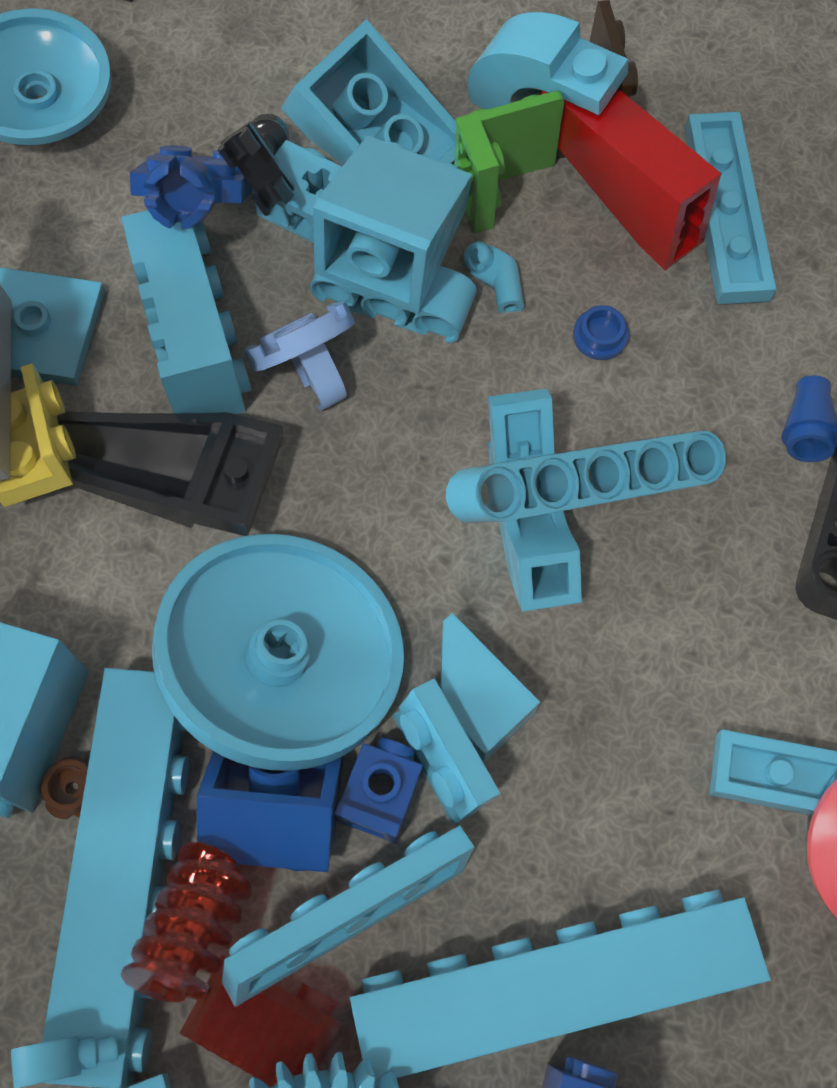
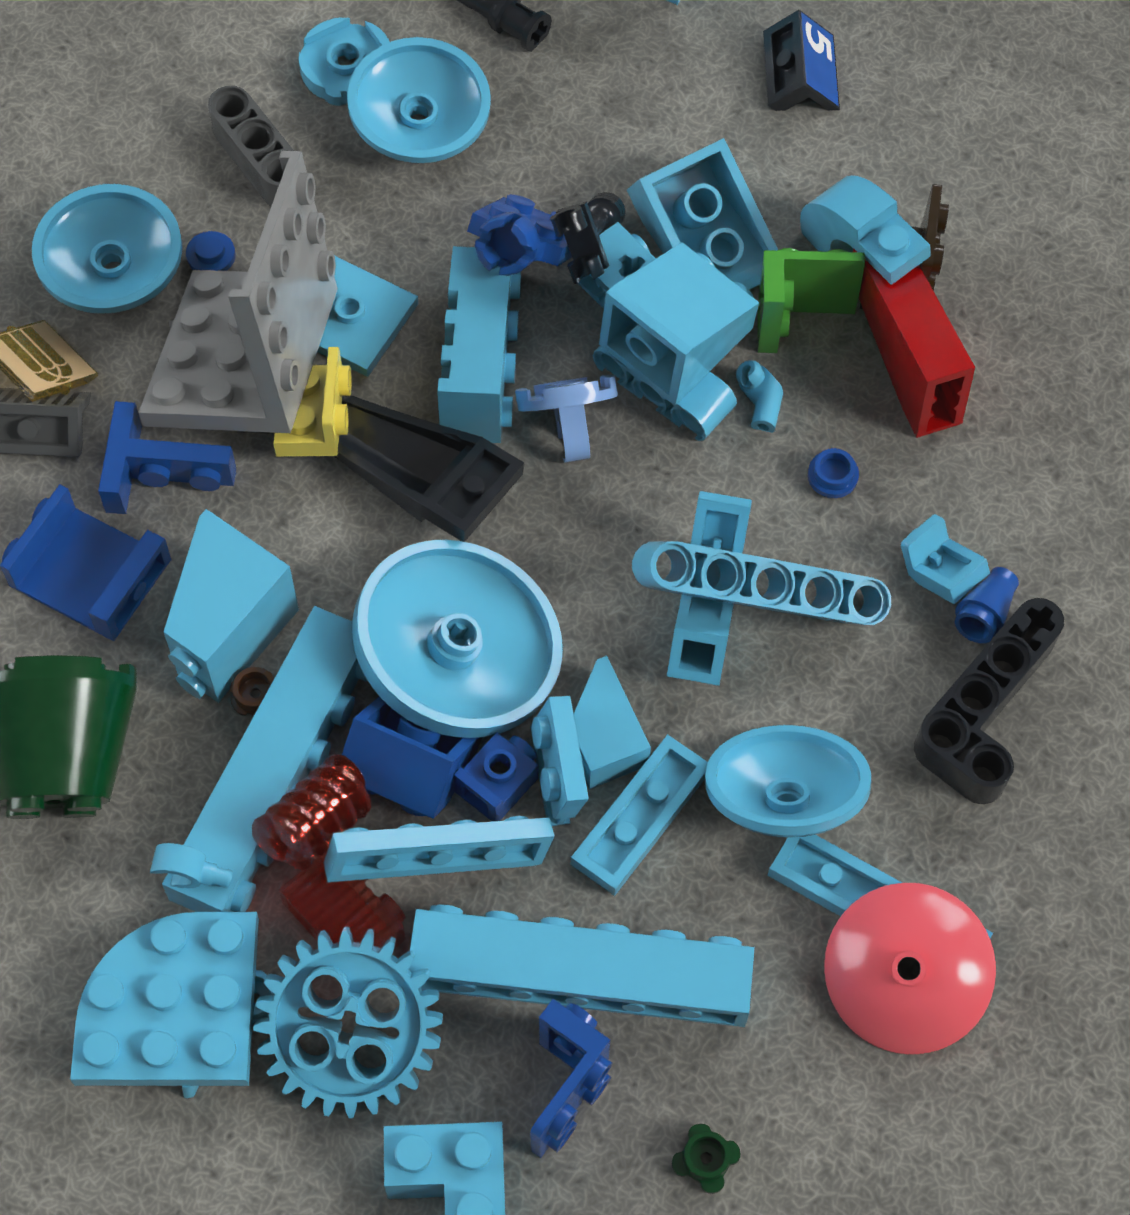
camera: 20 degrees right, 5 degrees down
(551, 779) = (640, 815): none -> medium azure plate
(705, 664) = (788, 780): none -> medium azure dish
(735, 228) = (995, 400): medium azure plate -> none
(750, 391) = (940, 562): none -> medium azure bracket

